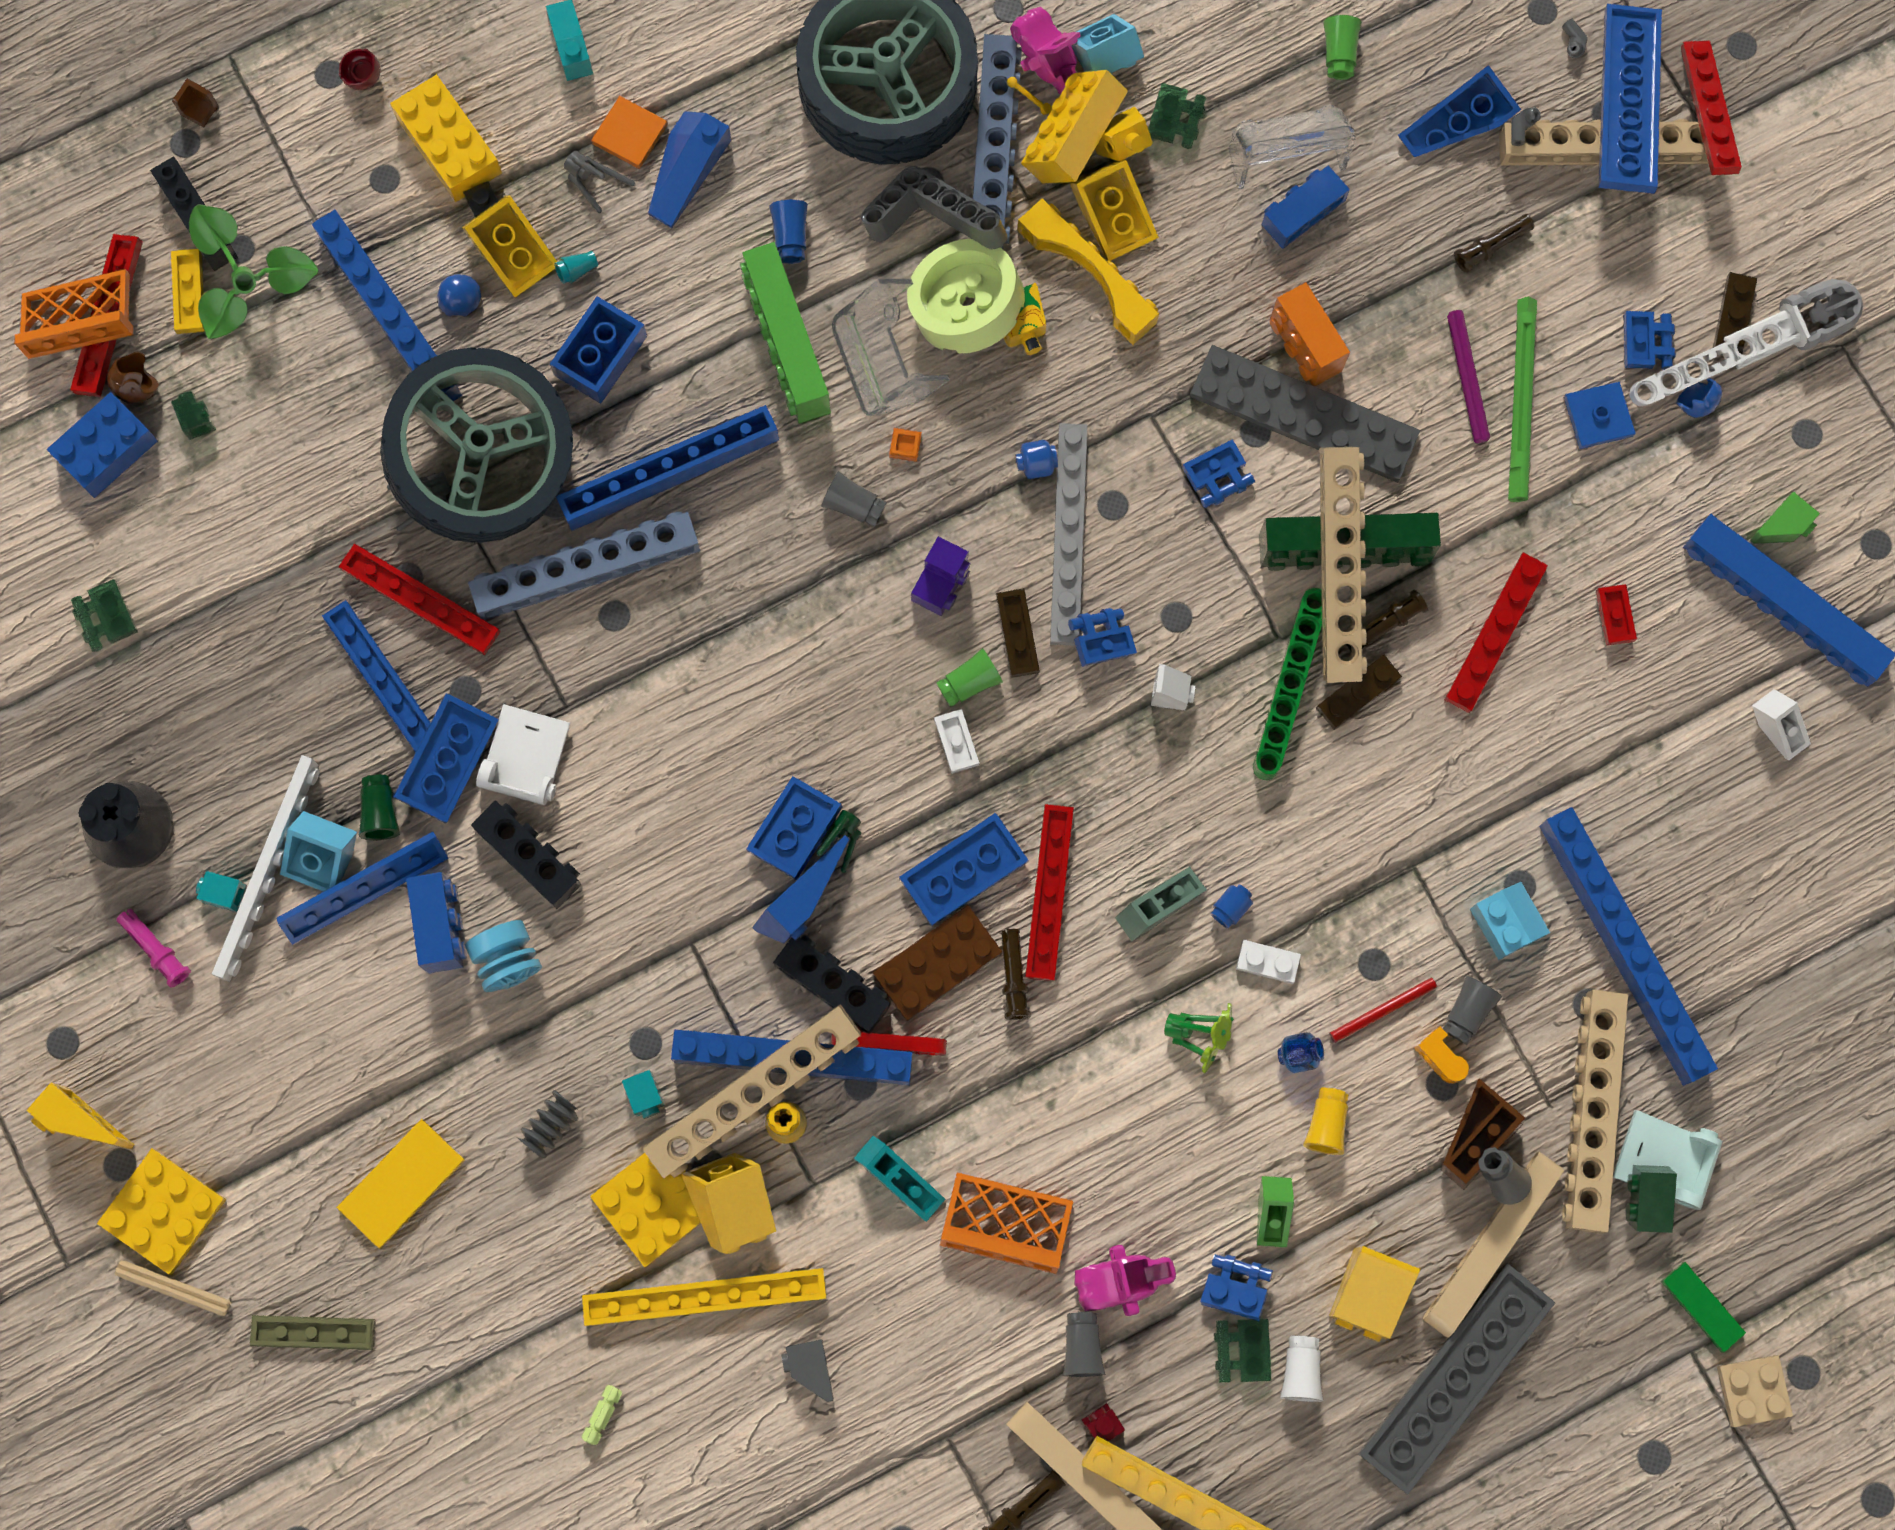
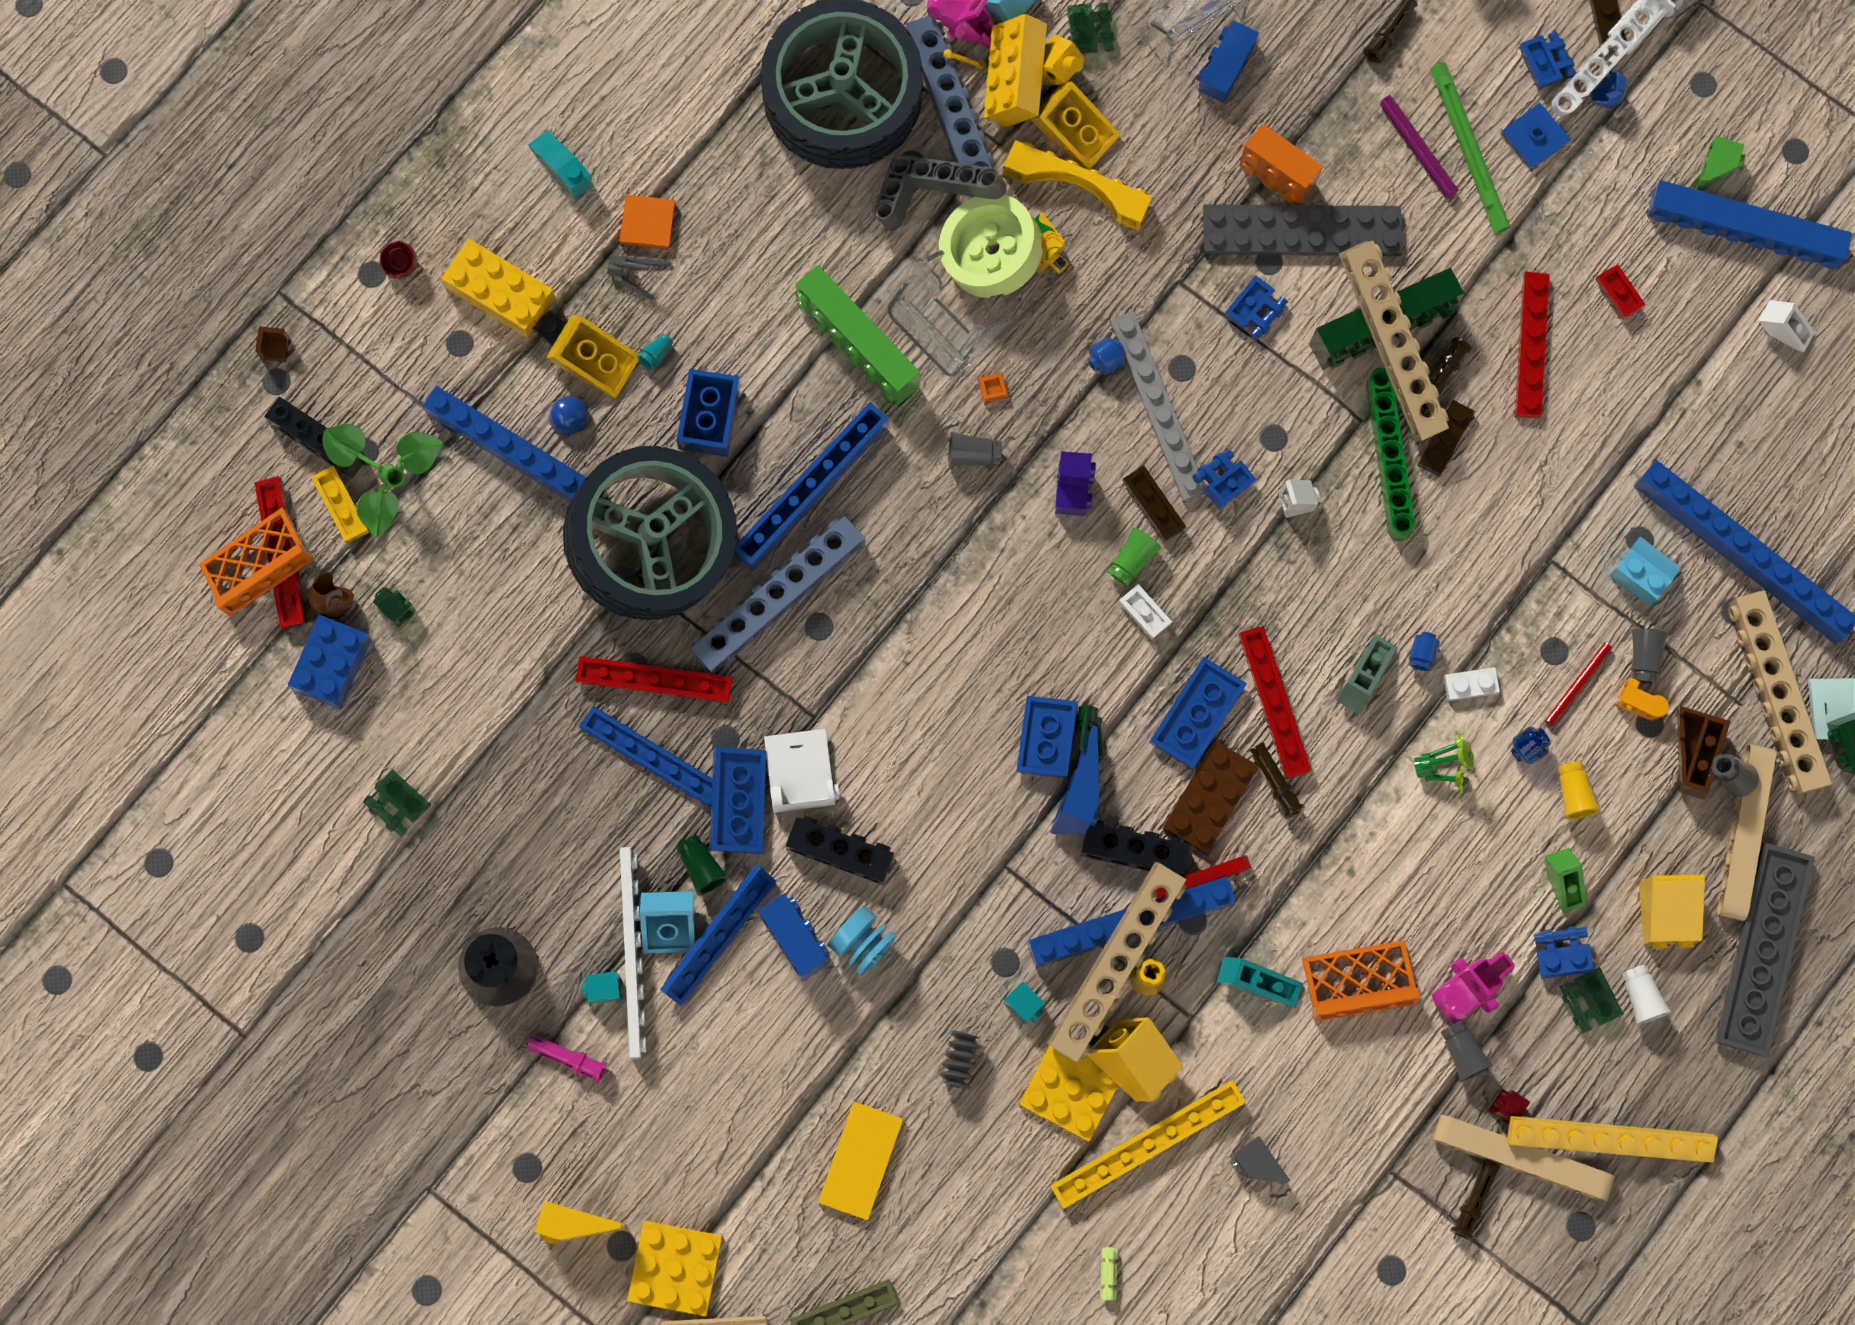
camera: 25 degrees left, 0 degrees up
(688, 159) = (706, 223): blue wedge -> none
(790, 229) = (819, 248): blue plant -> none

